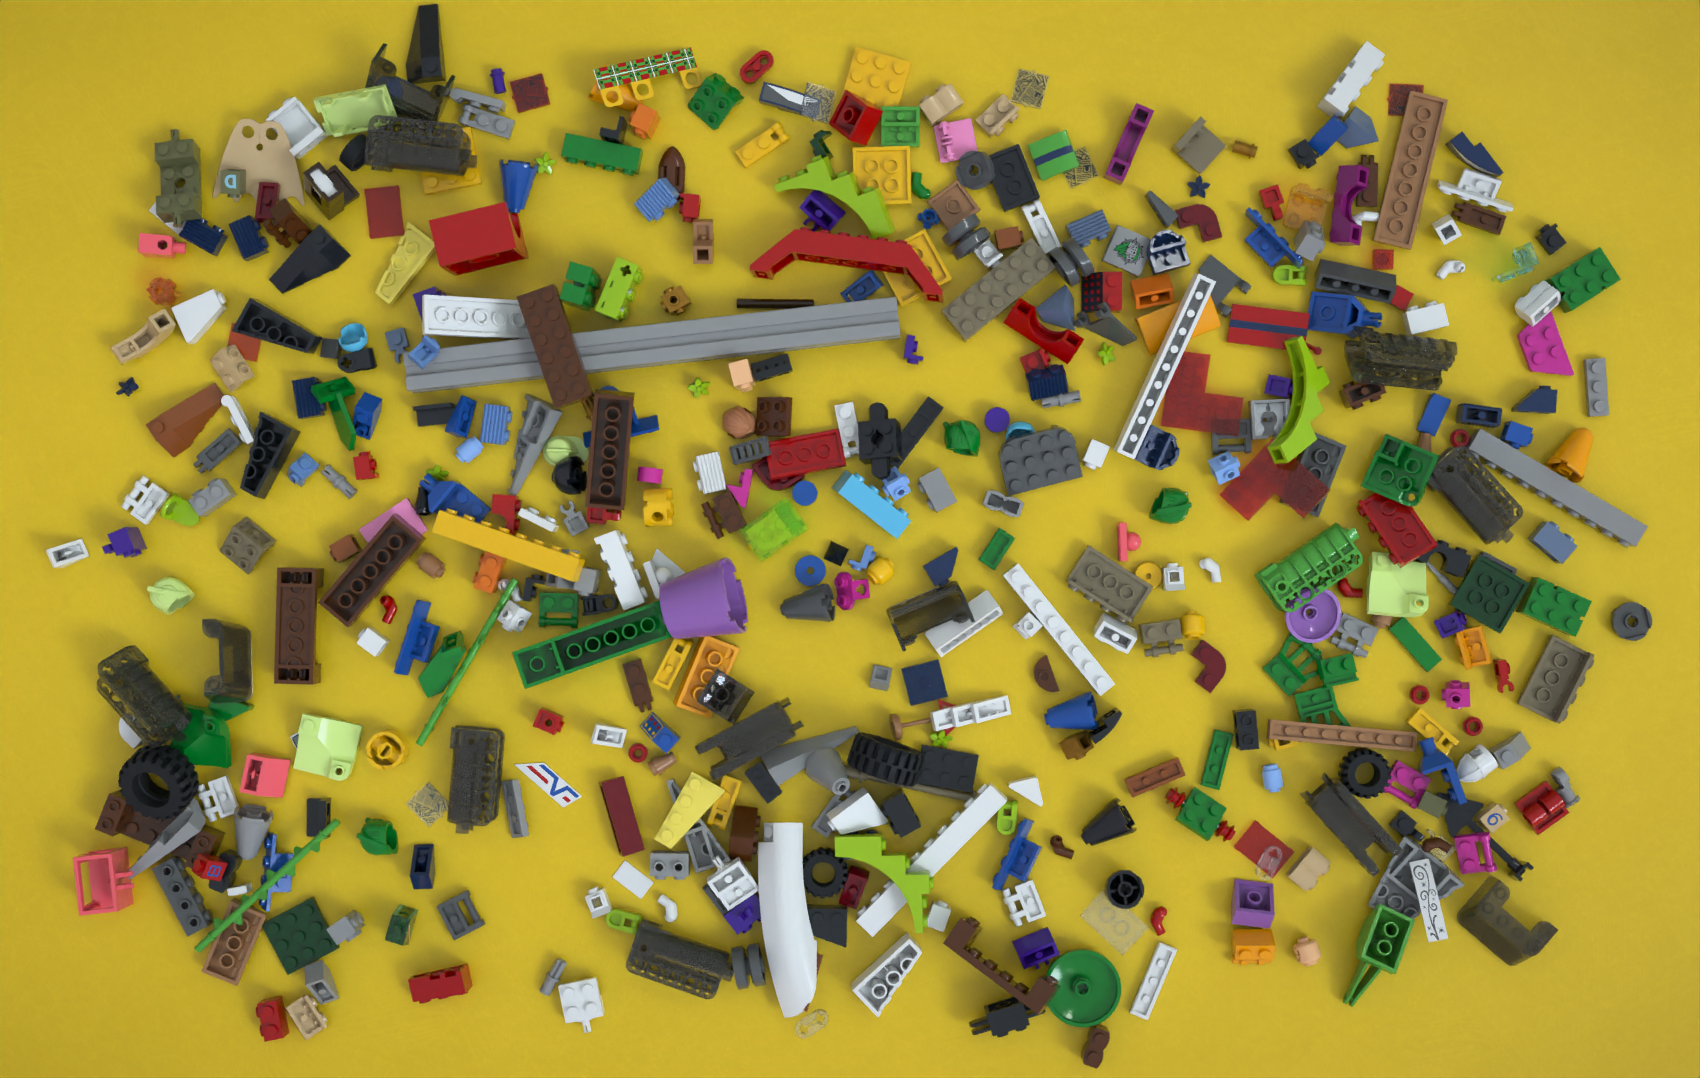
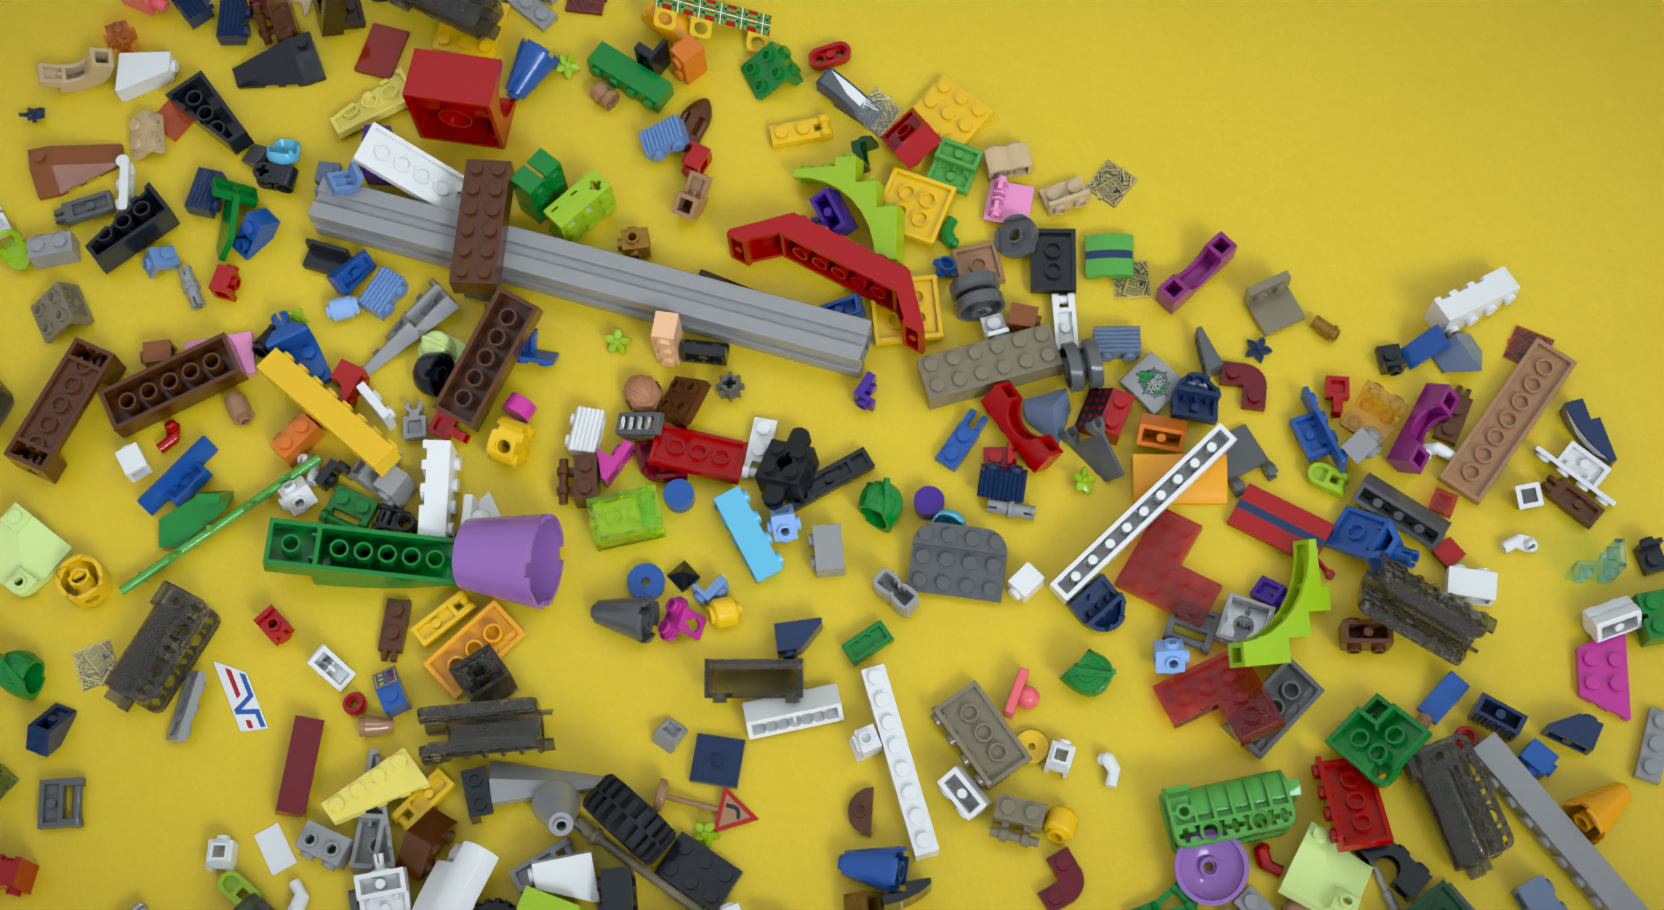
camera: 25 degrees right, 20 degrees down
(589, 179) = (604, 95): none -> medium nougat wheel
(800, 388) = (736, 386): none -> dark grey gear
(970, 713) = (755, 817): white slope -> none
(1000, 360) = (960, 442): none -> blue hinge

